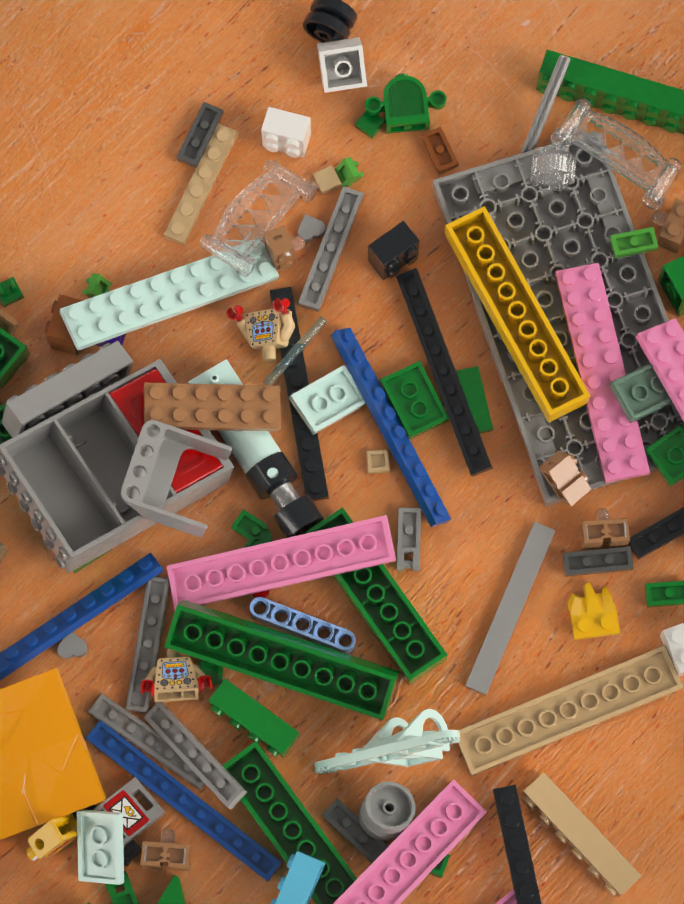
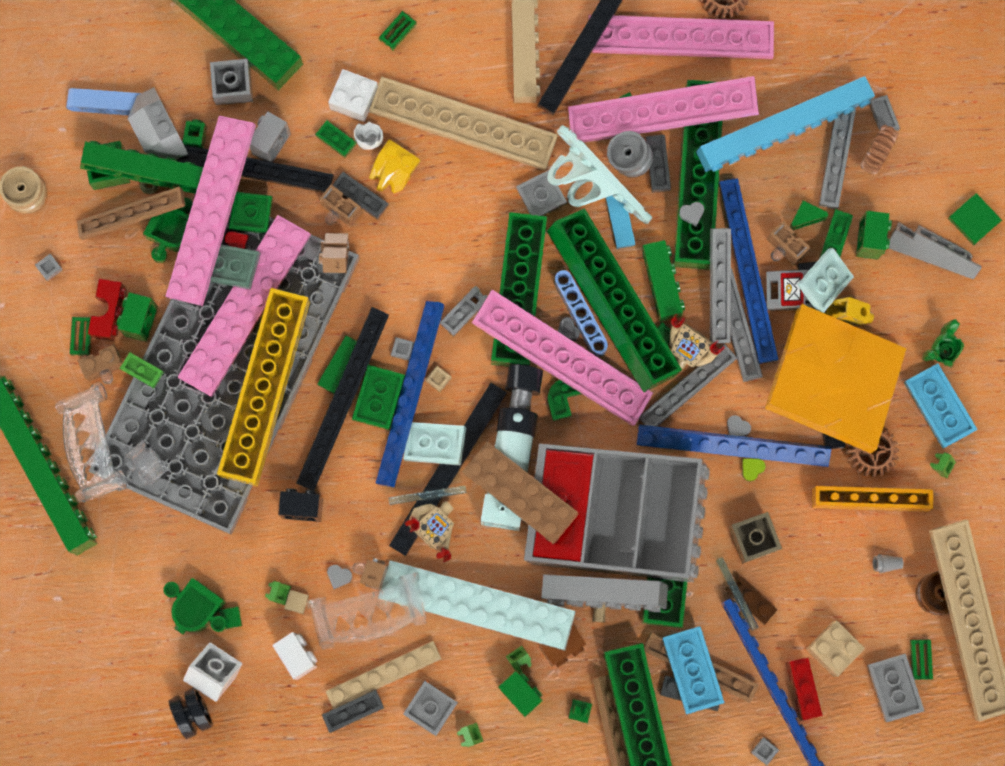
camera: 140 degrees left, 5 degrees up
(28, 620) = (752, 468): none -> lime tile
(69, 257) = (520, 693): none -> green brick
(84, 196) = (471, 735): none -> bright green tile
(137, 189) = (430, 708): none -> light grey plate
(154, 468) = (598, 474): light grey windscreen -> none
(278, 798) = (692, 213): none -> light grey tile
(302, 602) = (568, 329): none -> light grey tile
(330, 249) = (338, 549): light grey plate -> none
(337, 742) = (620, 223): none -> medium azure tile
(433, 460) = (402, 349): none -> light grey tile
(439, 150) = (203, 554): dark orange plate -> none
(439, 697) = (540, 195): none -> light grey plate
(510, 608) = (440, 215): light grey tile -> none
(546, 103) = (106, 515): light grey axle -> none
(642, 620) = (368, 135): none -> white hair
(663, 419) = (236, 239): none -> red tile

